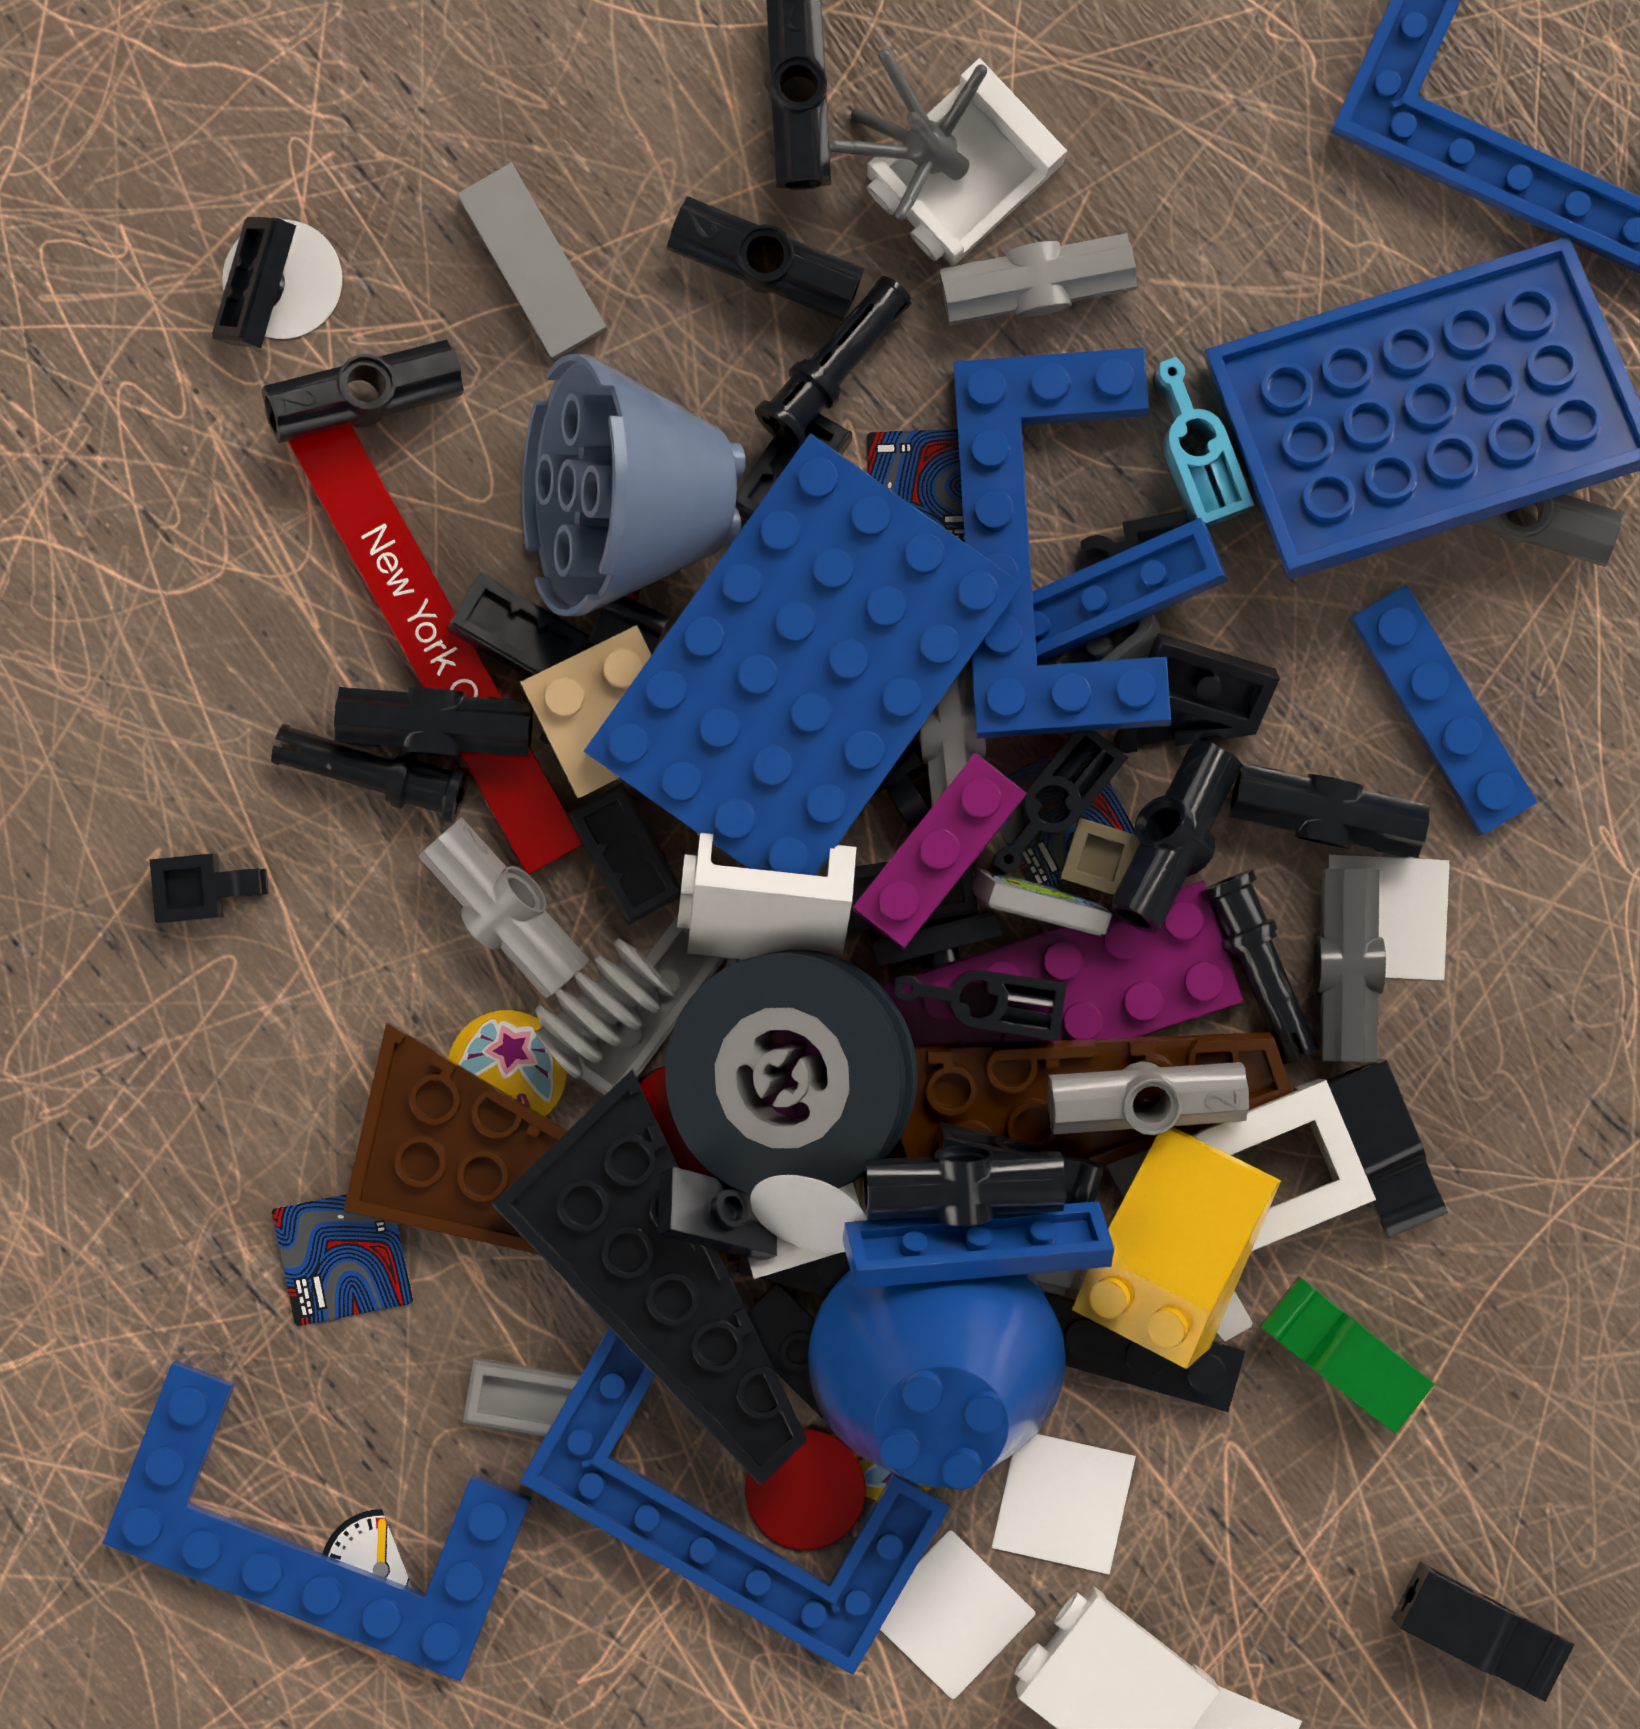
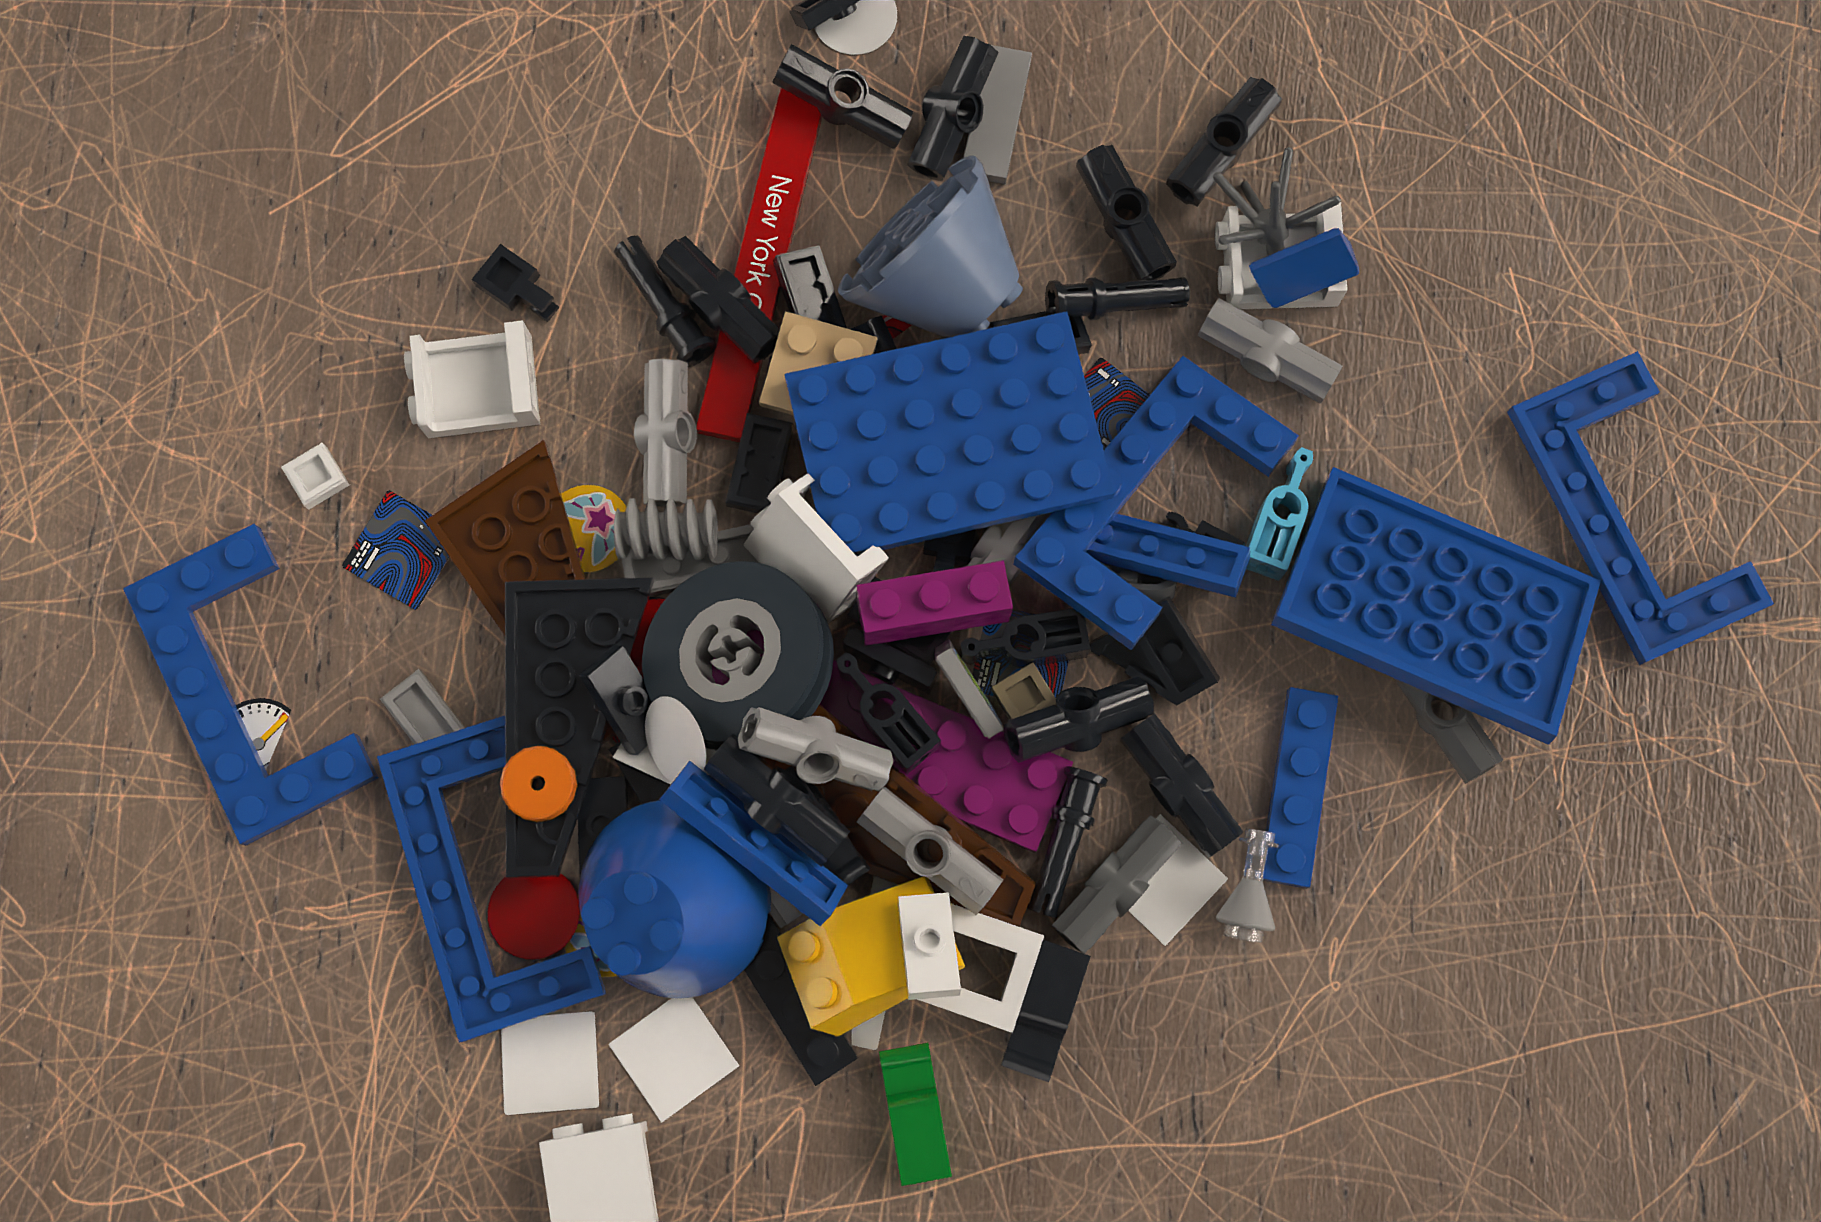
camera: 45 degrees right, 10 degrees down
(183, 1261) = (315, 476): none -> white tile
(255, 1026) = (473, 382): none -> white panel
(486, 300) = (953, 108): none -> black piece
(714, 1397) = (532, 764): none -> orange piece
(958, 1104) = (815, 749): none -> light grey piece
(1007, 166) = (1305, 268): none -> blue slope
(1231, 1193) = (928, 946): none -> white plate
(1497, 880) = (1247, 908): none -> piece

